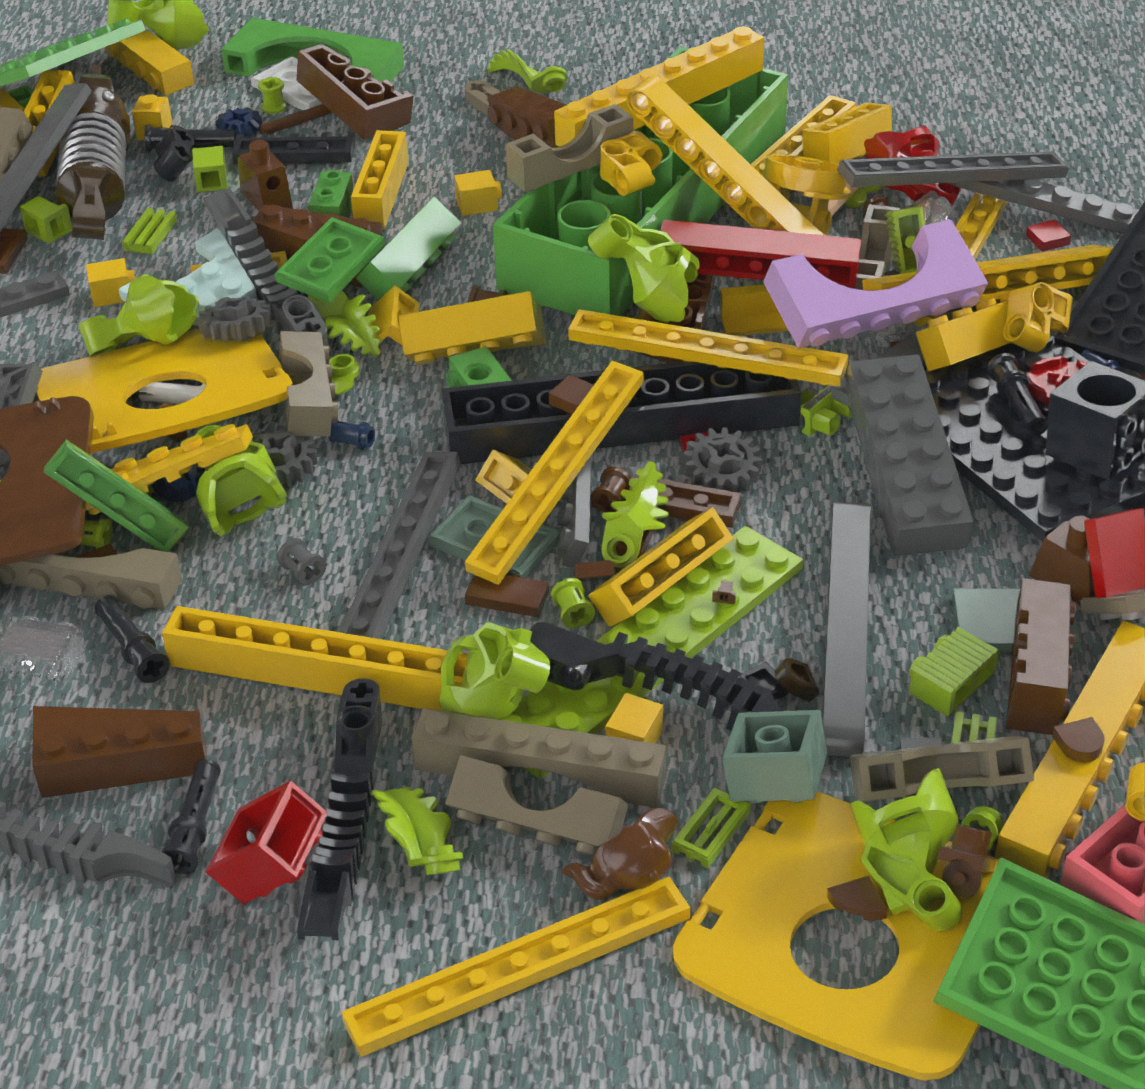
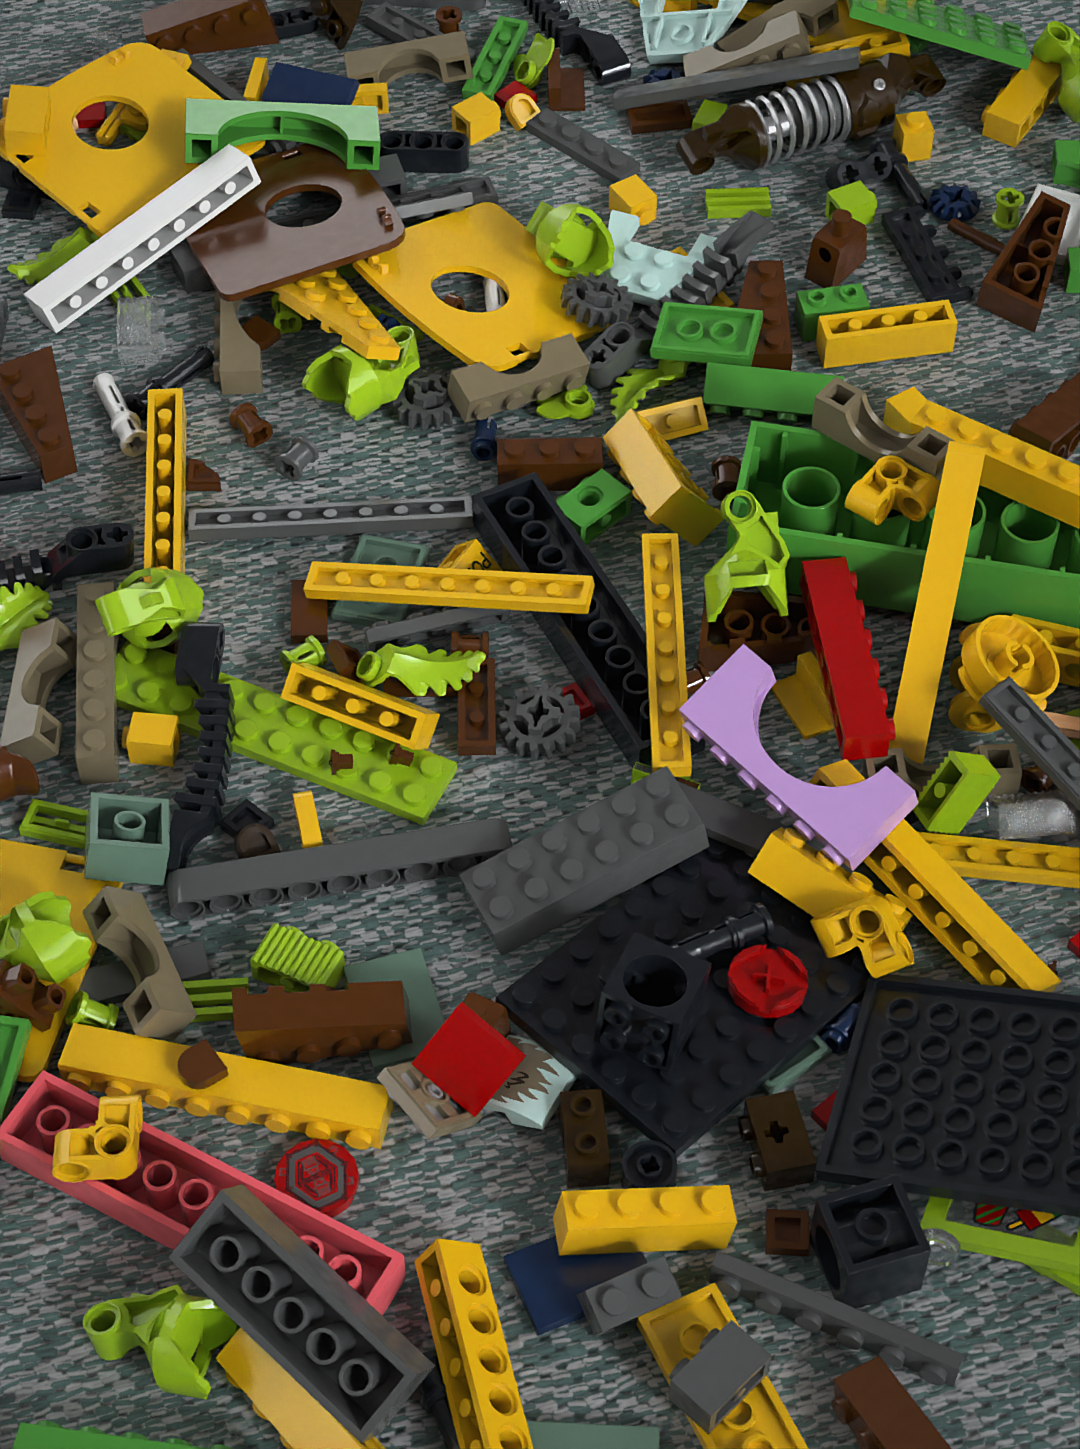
camera: 70 degrees right, 10 degrees up
(115, 497) = (287, 301): bright green tile -> none
(168, 683) = (124, 423): none -> white pin
(234, 586) = (250, 424): none -> reddish brown bush
(407, 395) = (556, 460): none -> reddish brown slope
(569, 393) = (555, 562): reddish brown tile -> none
(735, 550) = (400, 756): none -> reddish brown piece
(784, 635) = (307, 819): none -> yellow beam

